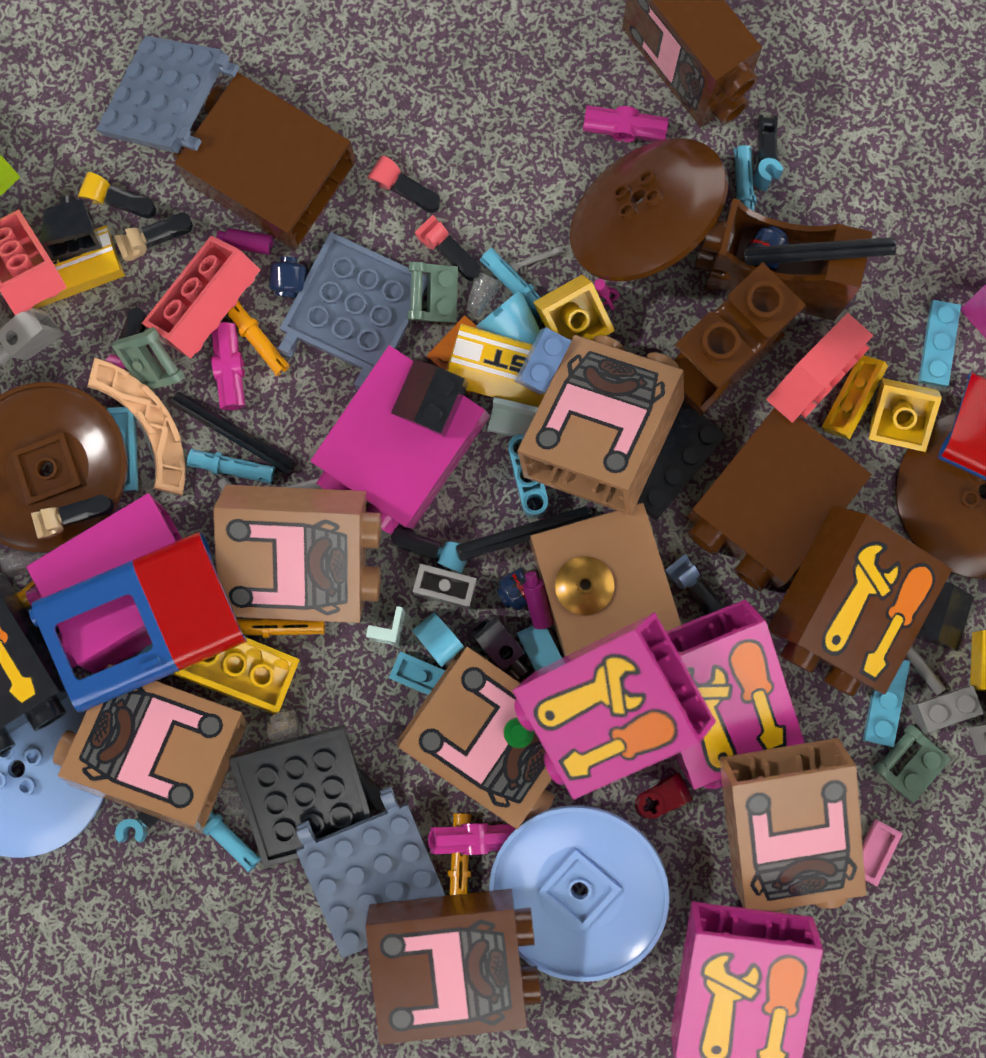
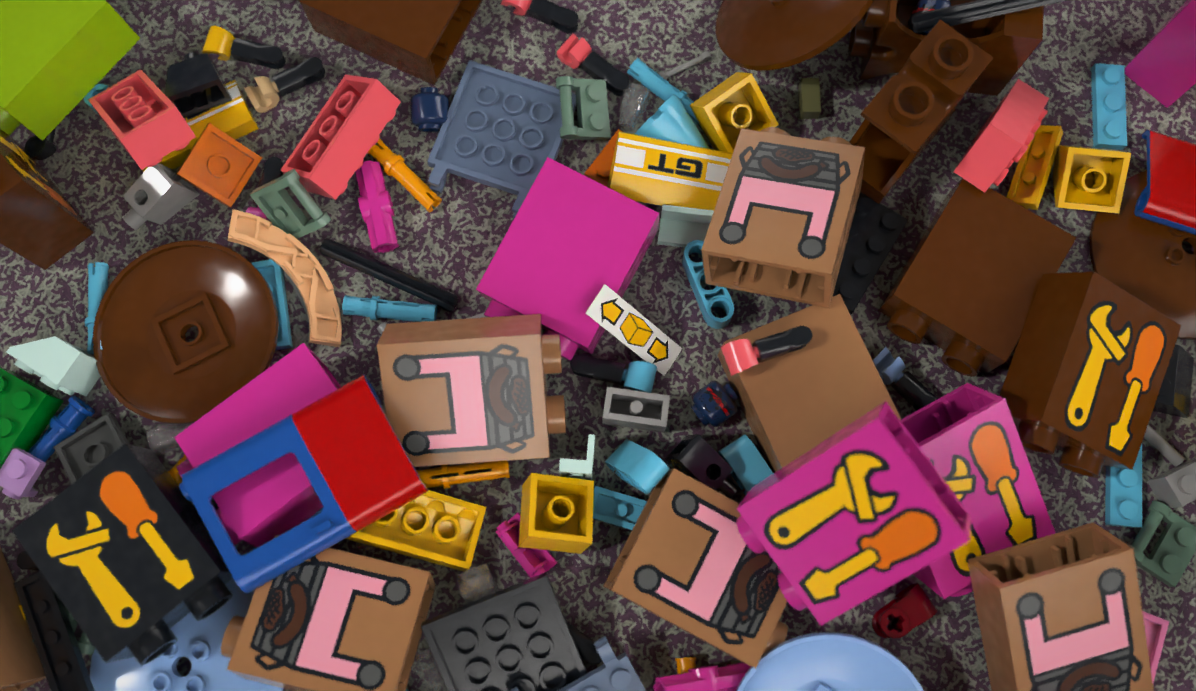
camera: 10 degrees left, 5 degrees down
(49, 520) = (197, 385): piece -> none
(85, 311) = (218, 165): none -> orange plate
(247, 240) = (391, 78): magenta cylinder -> none
(331, 698) = (532, 560): none -> dark pink hinge
(361, 673) = (556, 513): none -> yellow brick
(430, 397) = (599, 204): black slope -> none
(448, 510) = (633, 329): none -> sticker
(516, 734) = (742, 558): green plate -> none
(519, 534) = (703, 347): black axle -> none
(537, 601) = (739, 413): magenta cylinder -> none
(542, 361) = (711, 158): medium blue brick -> none
(543, 551) = (743, 355): none -> piece
(584, 601) = (779, 399): pearl gold dish -> none
(604, 291) = (764, 85): dark pink piece -> none
(651, 304) = (809, 98): none -> olive piece

